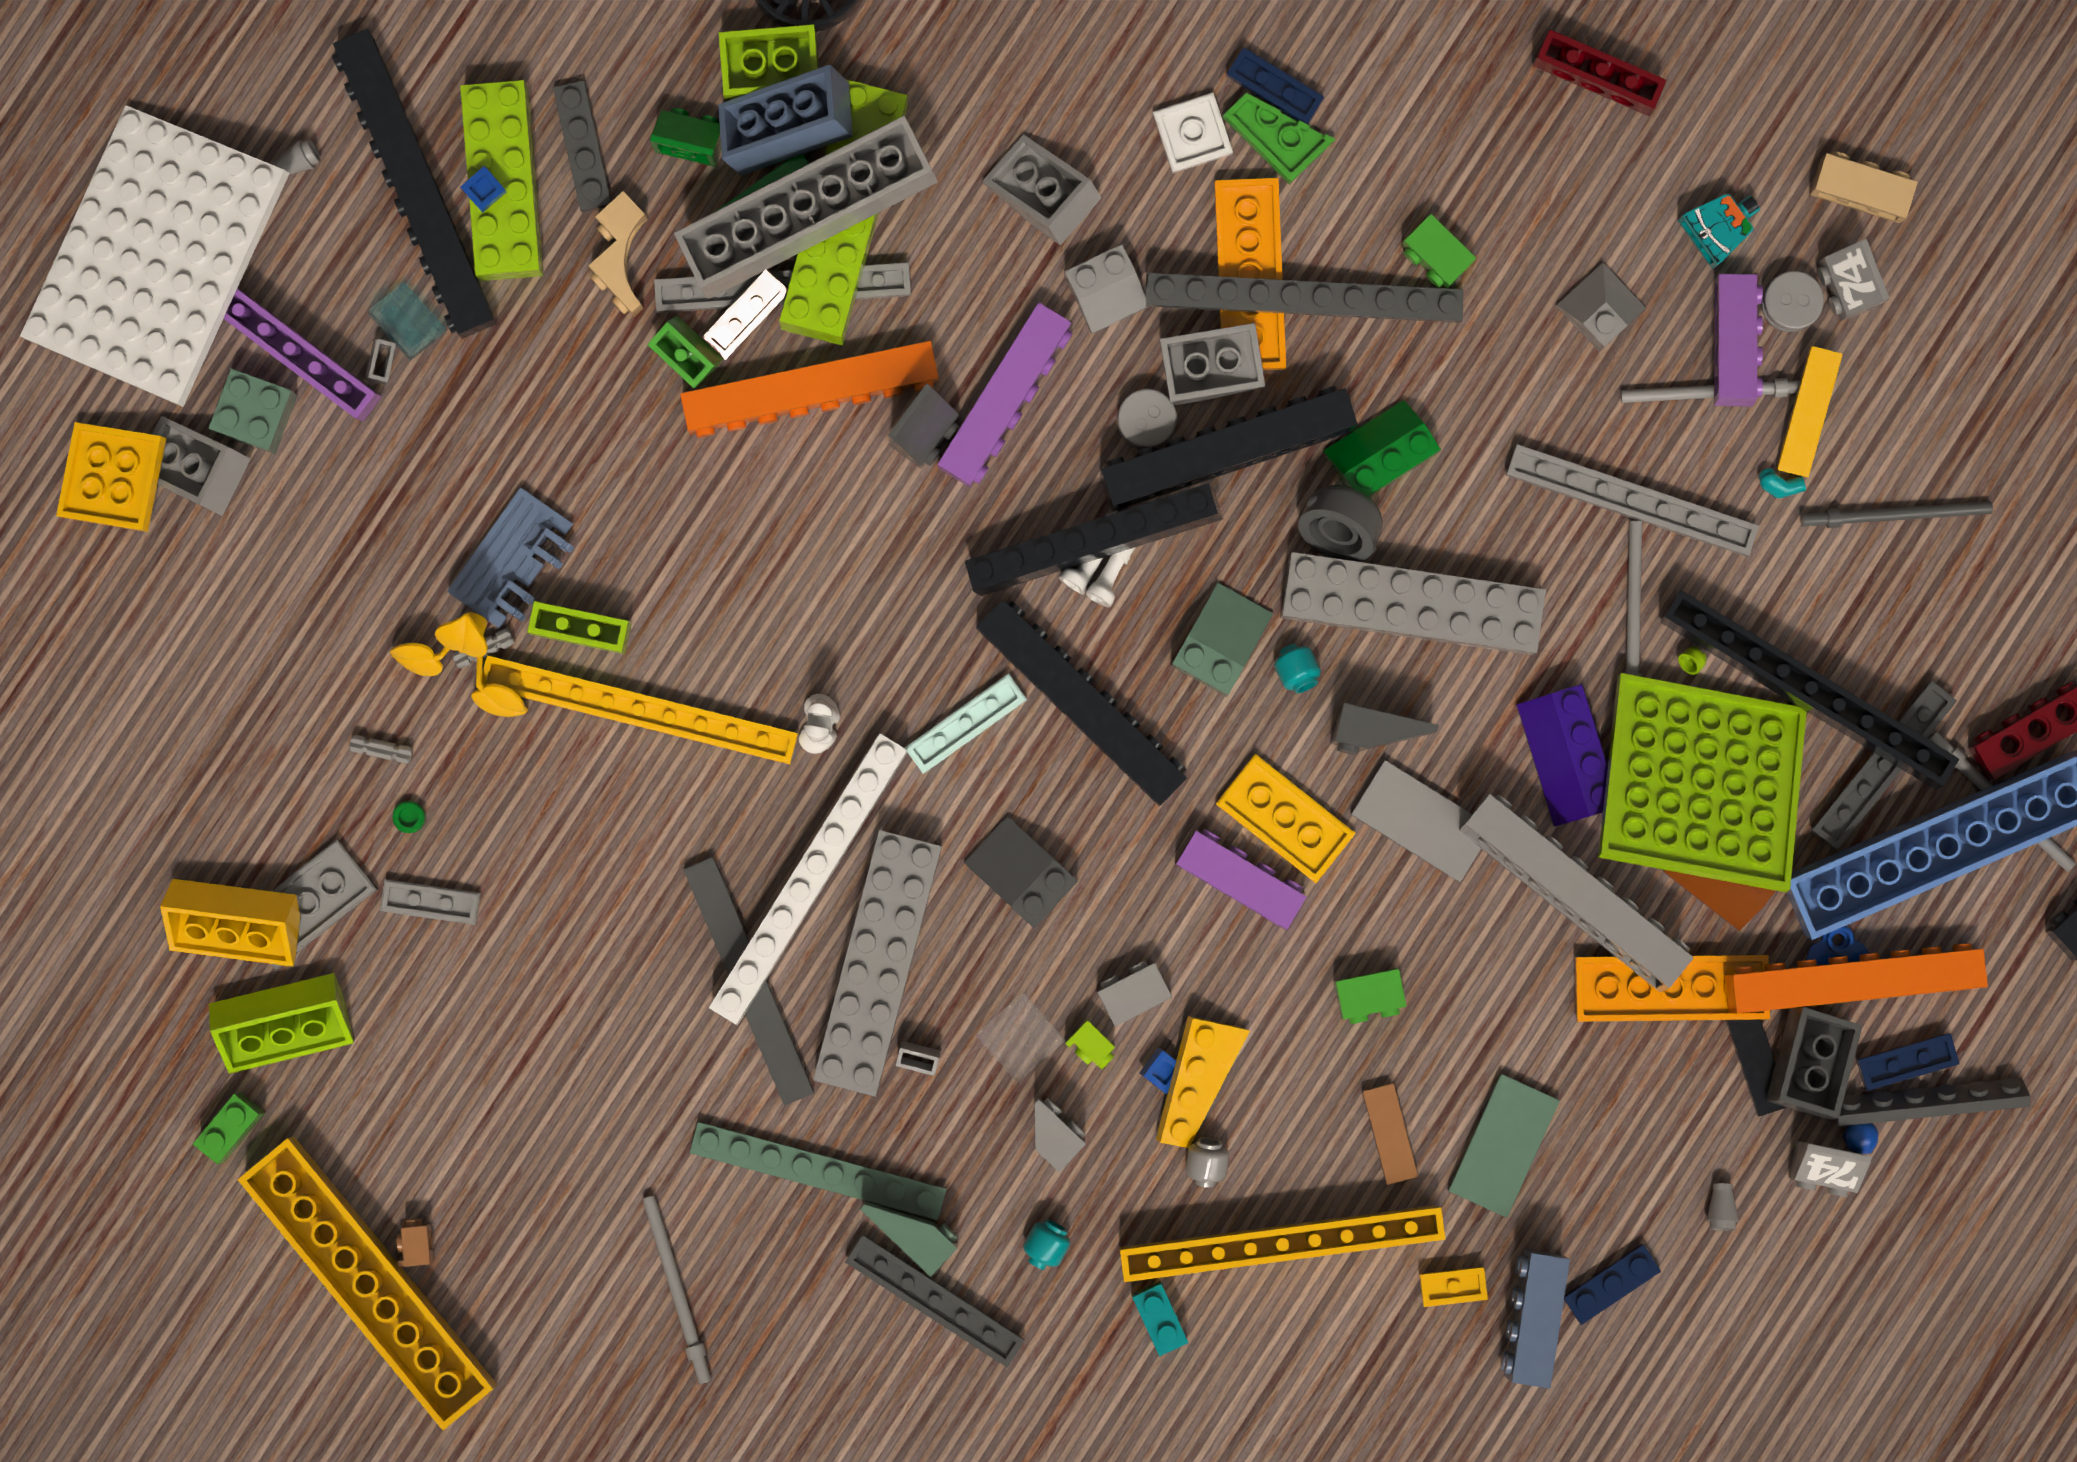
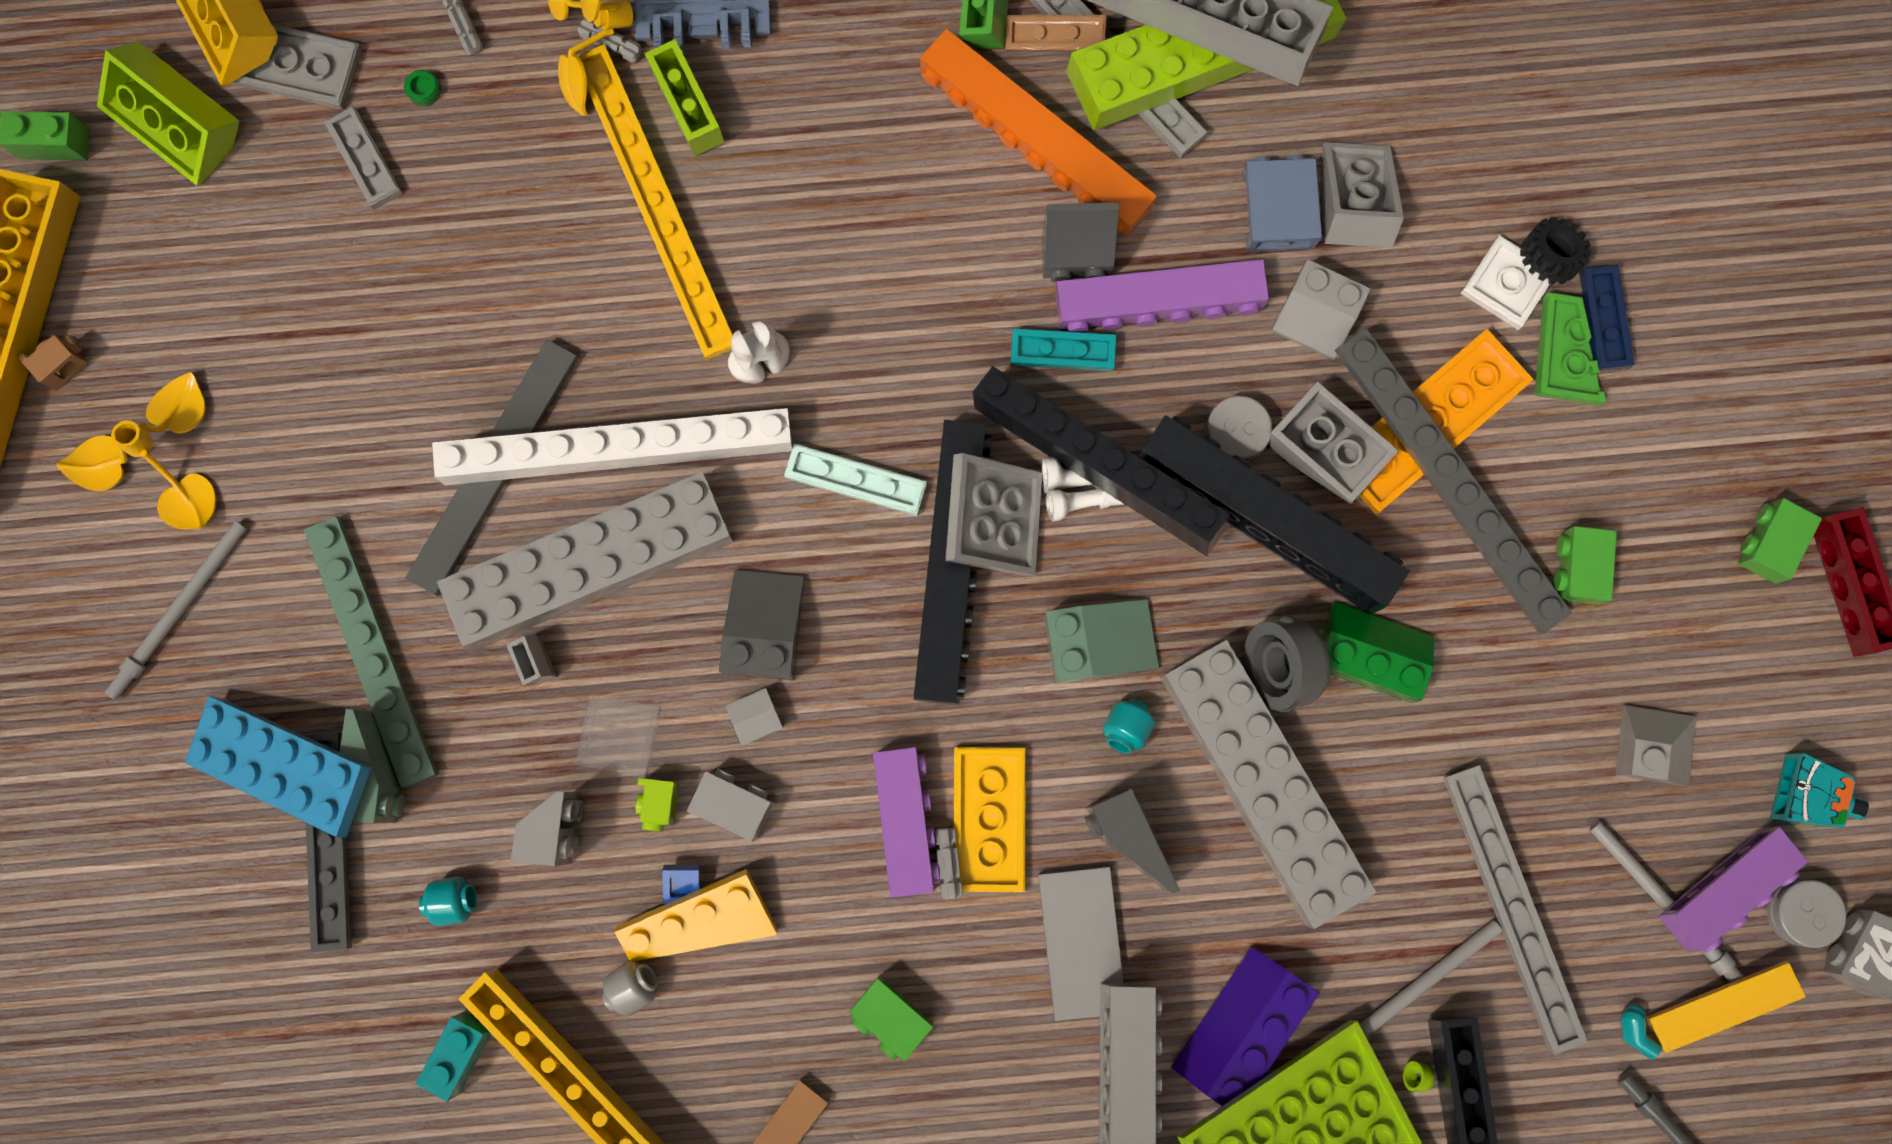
camera: 60 degrees right, 5 degrees down
(519, 1180) = (99, 459): none -> yellow plant
(858, 1290) = (278, 766): none -> dark azure plate
(988, 498) = (1063, 350): none -> teal plate
(1005, 251) = (1282, 204): none -> sand blue panel
(1075, 645) = (994, 515): none -> light grey plate
(1083, 929) = (754, 716): none -> light grey piece
(1197, 99) = (1565, 240): none -> black tyre
(1294, 871) = (948, 863): none -> light grey axle
(1527, 101) = (1778, 540): none -> bright green brick

